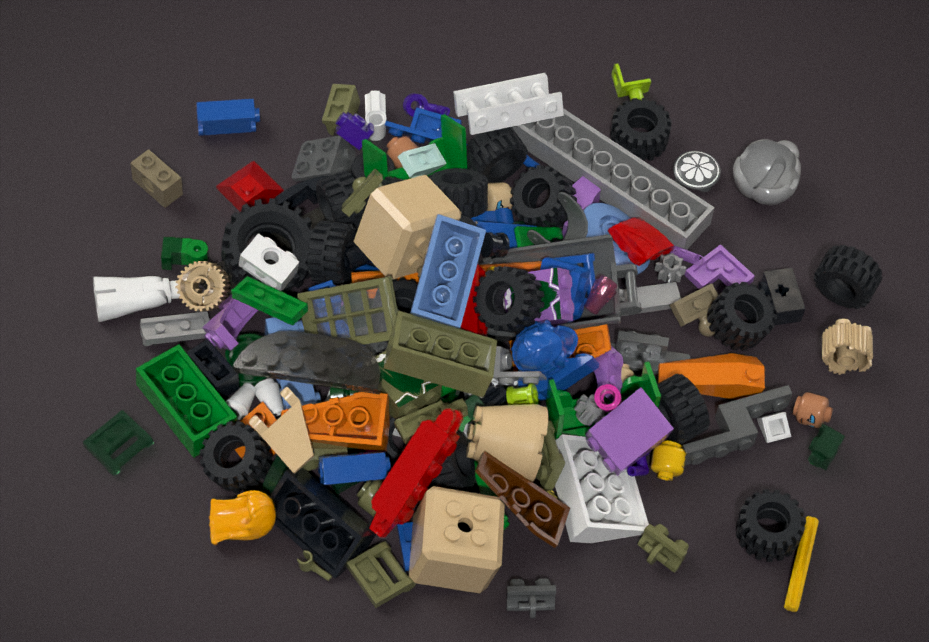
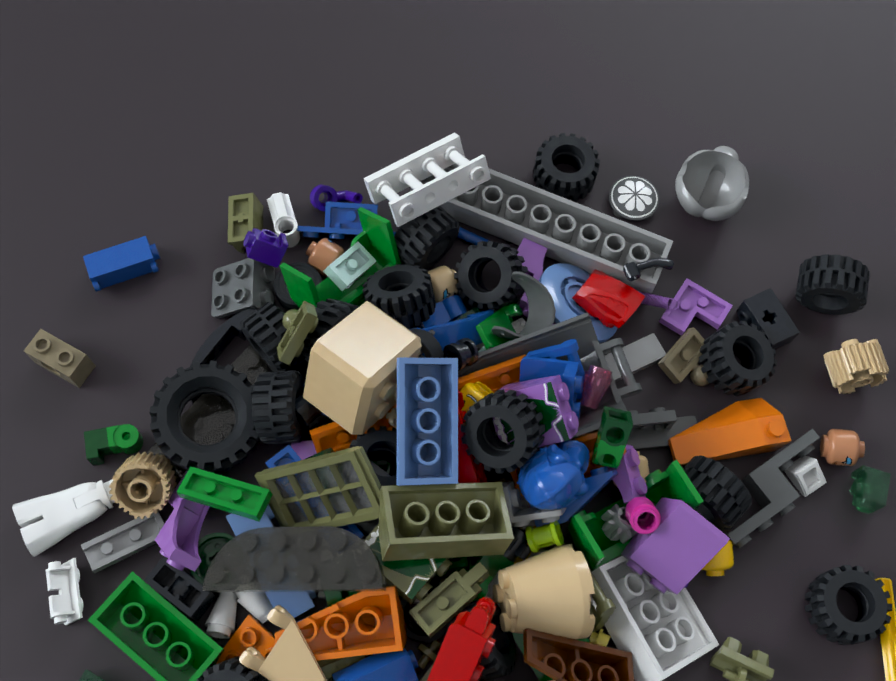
camera: 15 degrees left, 10 degrees up
(118, 360) = (68, 605): none -> white hinge
(249, 185) = (169, 340): red slope -> none
(273, 275) = (198, 432): white brick -> none
(598, 330) = (612, 437): none -> dark green leg
(632, 89) = (544, 124): lime bracket -> none
(667, 220) = (632, 269): none -> black piece
(670, 268) = (644, 320): light grey gear -> none

